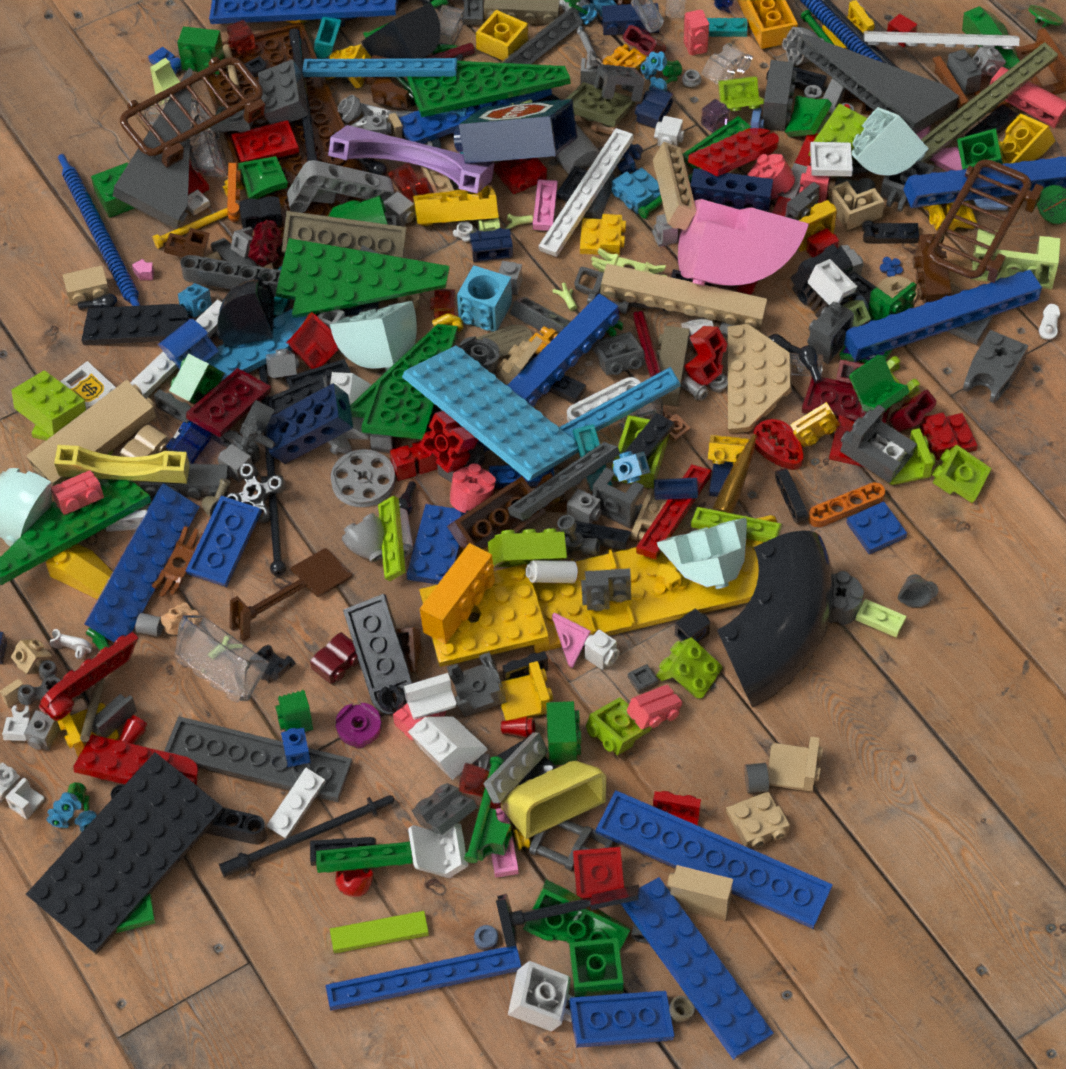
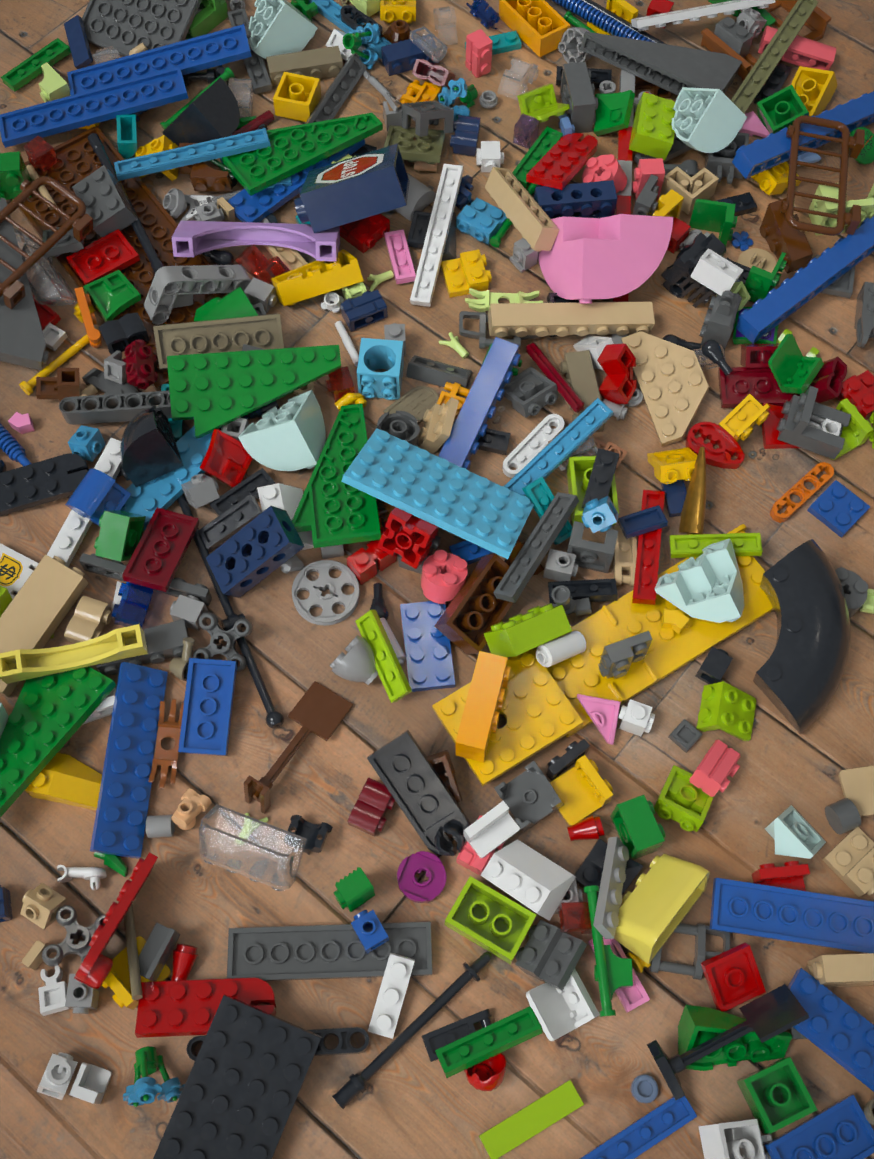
camera: 20 degrees left, 10 degrees up
(77, 492) = (33, 701): coral brick -> none
(254, 427) = (198, 570): dark grey piece -> none
(256, 66) = (67, 179): black tile -> none
(402, 769) = (490, 919): none -> lime brick
(464, 263) = (347, 342): none -> white piece
(704, 778) = (794, 835): none -> light aqua slope
(791, 495) = (749, 497): black beam -> none
(831, 159) = (661, 148): white plate -> none
(865, 237) = (714, 217): none -> green bracket

